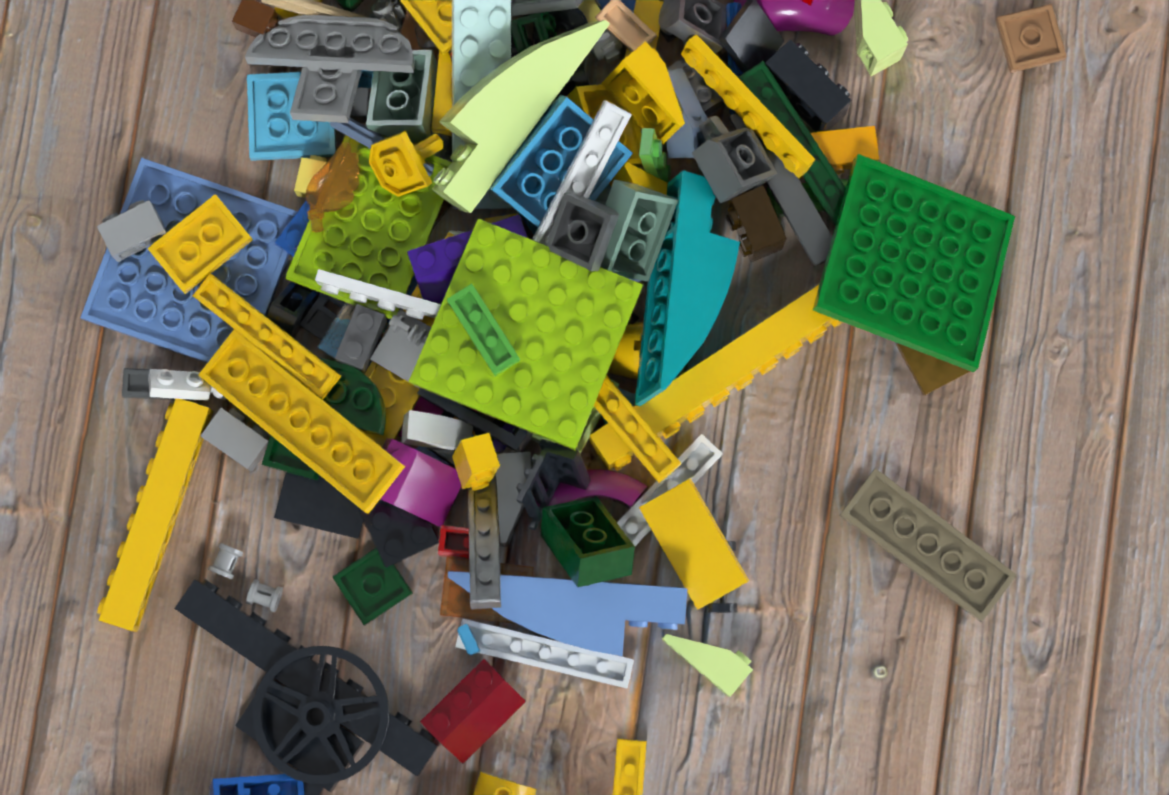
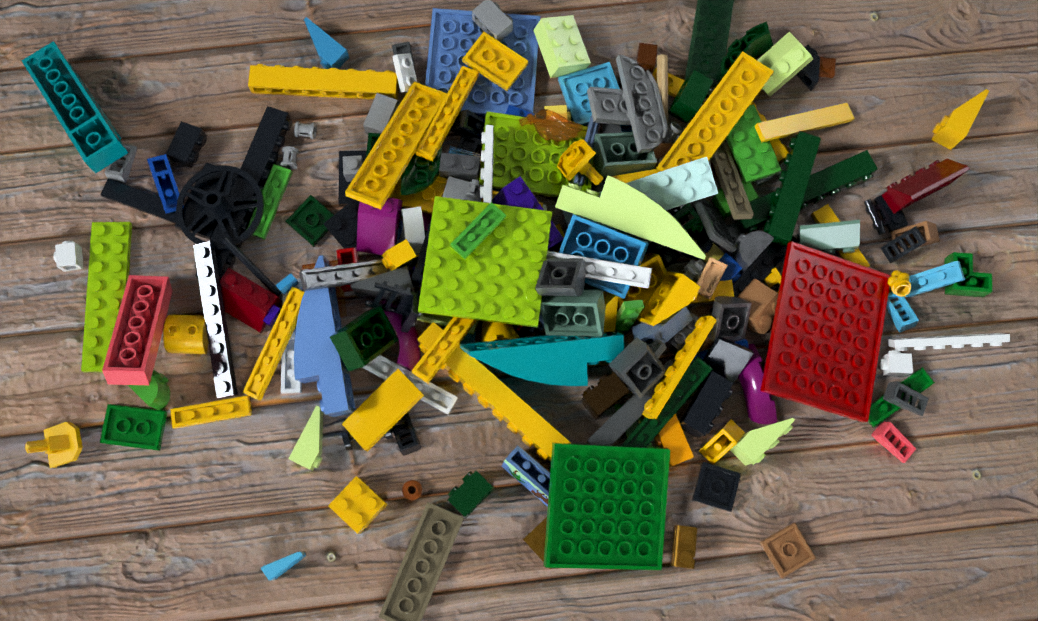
camera: 70 degrees right, 5 degrees down
(102, 496) = (329, 51): none -> dark azure slope
(198, 748) = (186, 144): none -> black brick
(203, 138) = (561, 45): none -> yellowish green brick
(313, 499) = (351, 165): none -> light grey brick
(313, 632) = (272, 195): none -> bright green plate
(426, 688) = (251, 266): none -> black bar
(492, 759) = (215, 319): none -> plate
(510, 673) = (271, 316): none -> dark purple plate
(552, 677) = (274, 345): none -> yellow tile
(744, 532) = (409, 448): none -> black slope
(810, 539) = (407, 485): none -> dark orange plate
(820, 613) = (357, 505): none -> yellow brick
(840, 359) = (528, 473): none -> medium blue brick
(846, 449) = (470, 493): none -> dark green brick
(861, 80) = (722, 441): none -> yellow slope
(878, 745) = (279, 567): none -> medium azure slope
(921, 108) = (716, 487): none -> black plate
(992, 176) = (684, 546): none -> pearl gold brick

